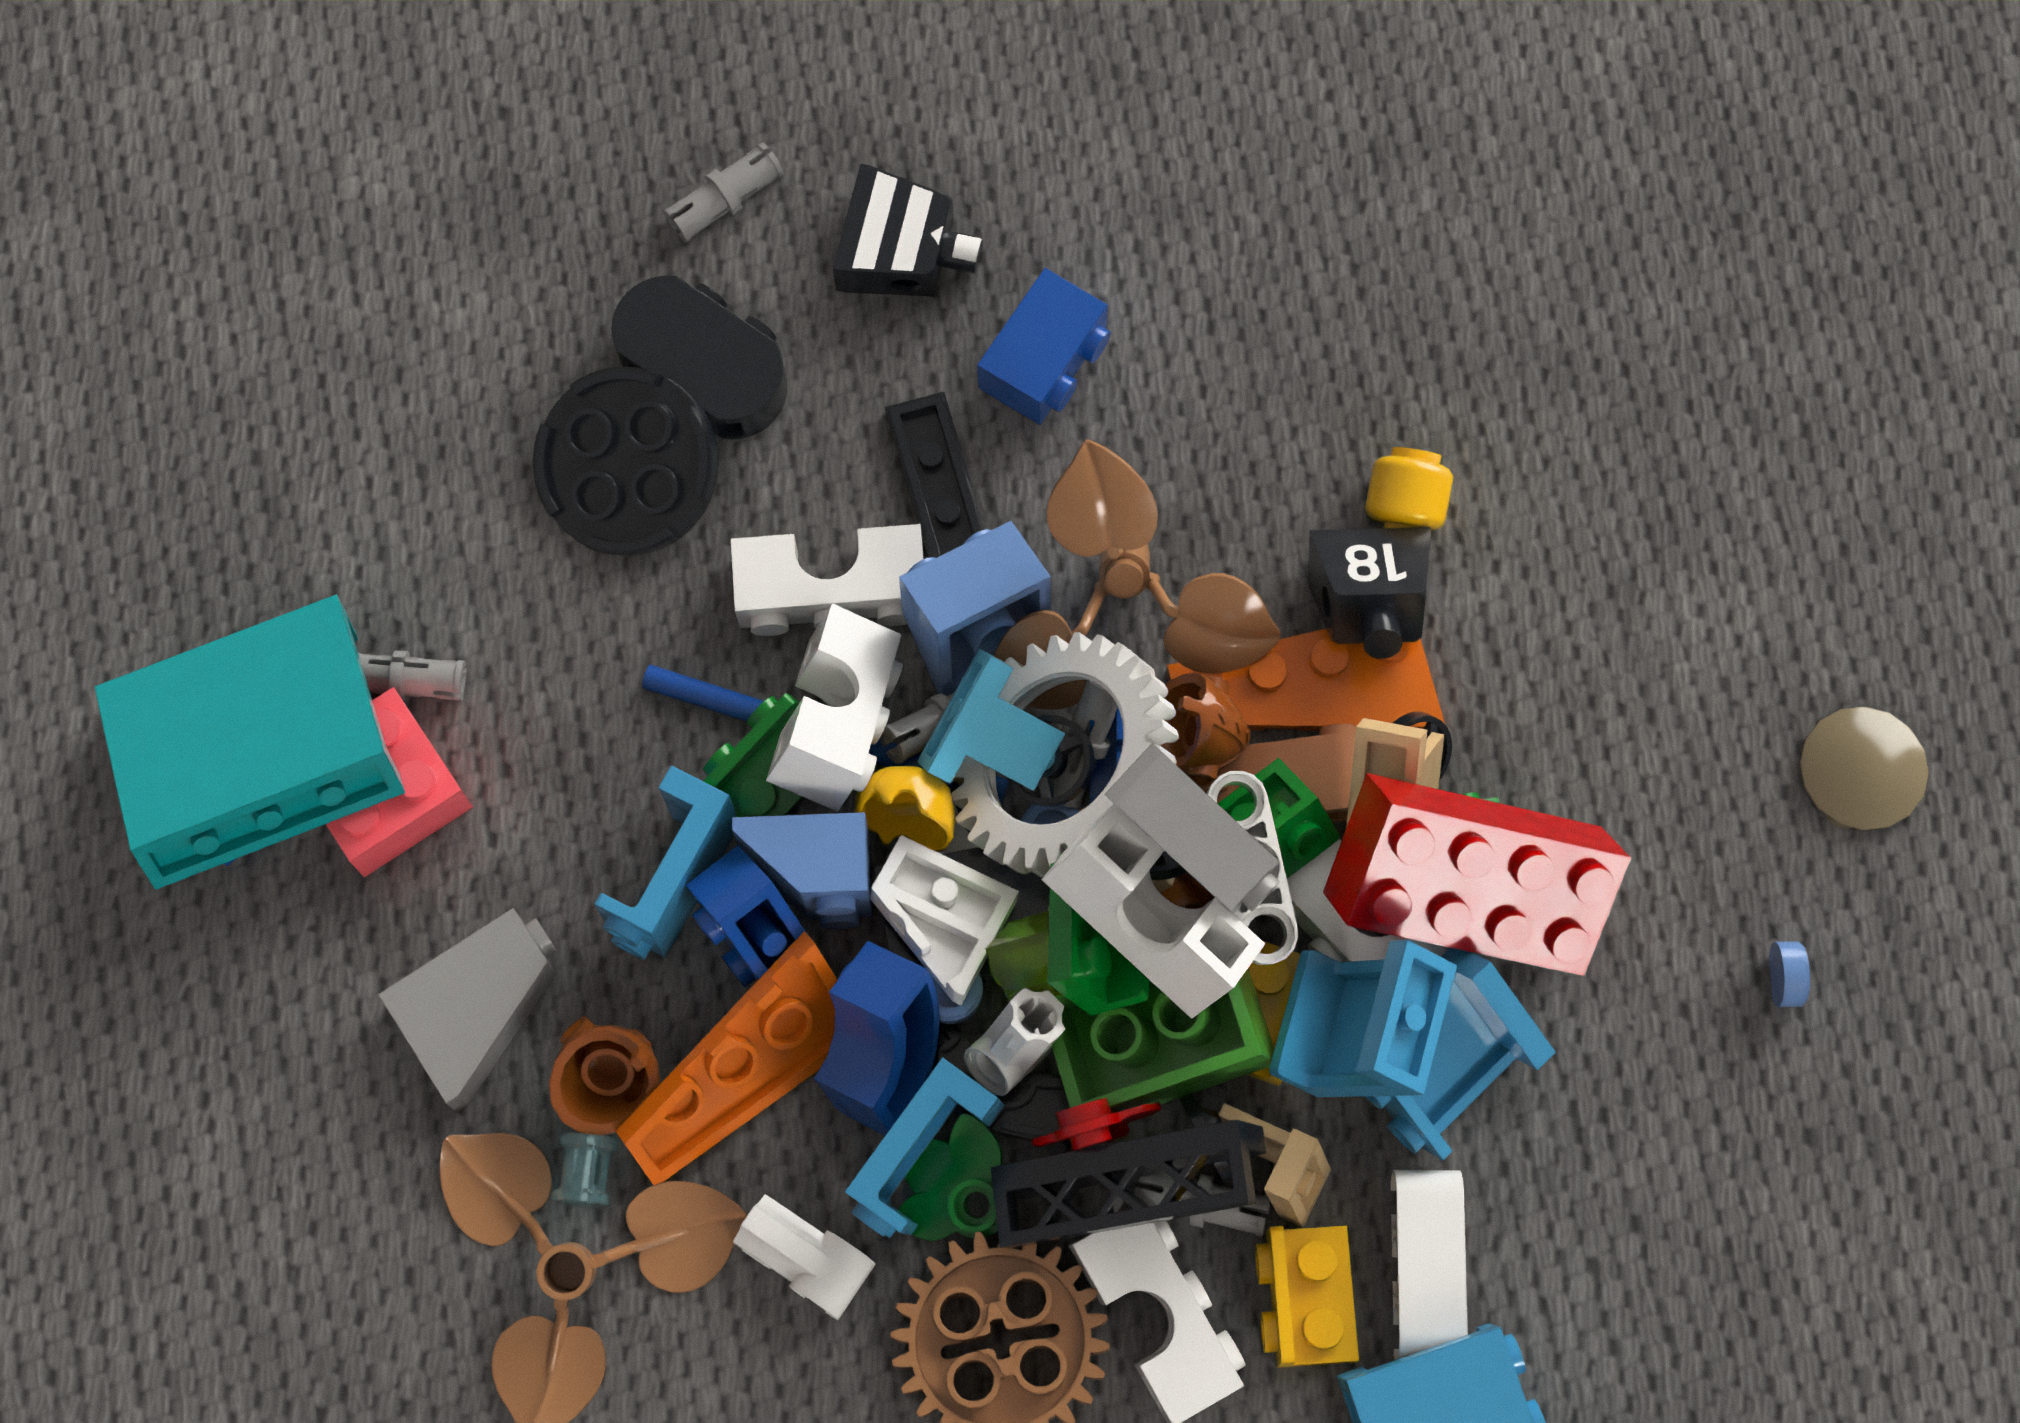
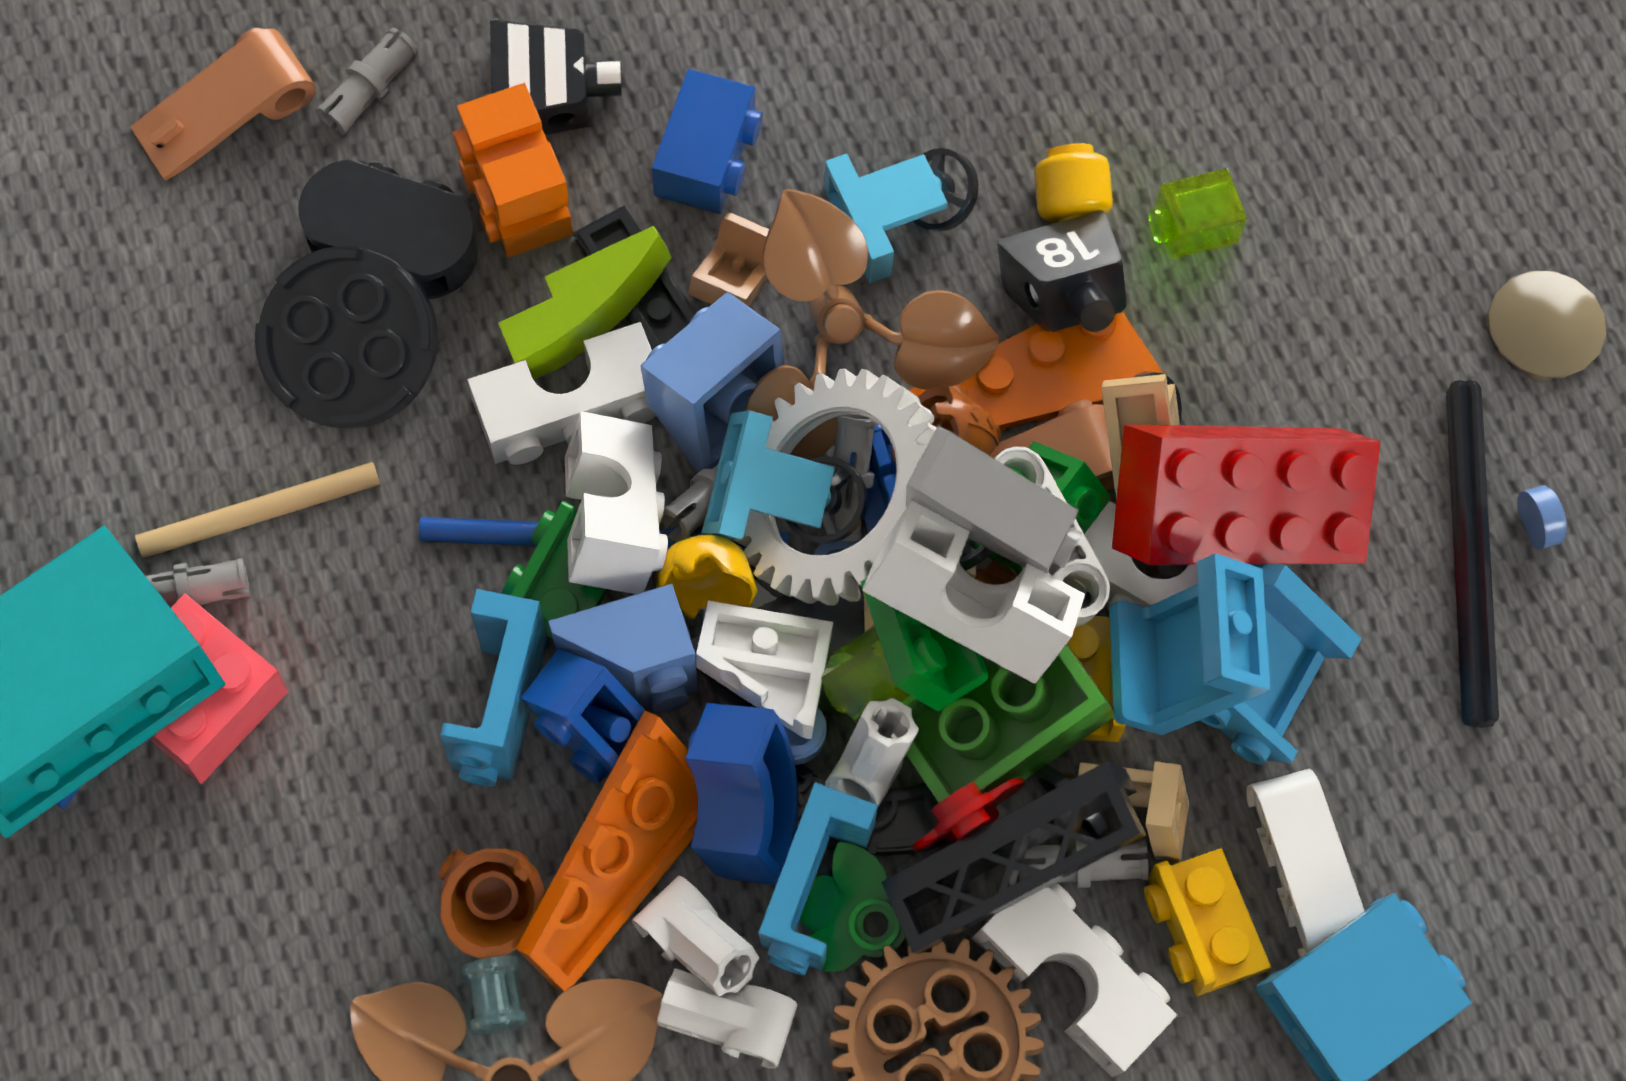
camera: 20 degrees left, 5 degrees down
(472, 1002) = (341, 868): light grey slope -> none
(493, 613) = (257, 510): none -> tan bar
(605, 163) = (246, 80): none -> nougat door
(790, 1160) = (695, 935): none -> white piece
(835, 331) = (512, 171): none -> orange brick
(871, 488) = (585, 302): none -> lime slope
(1025, 489) = (733, 263): none -> medium nougat bracket
(1222, 458) = (897, 197): none -> medium azure piece
(1529, 555) = (1198, 214): none -> clear neon green brick
(1704, 991) = (1472, 555): none -> black axle

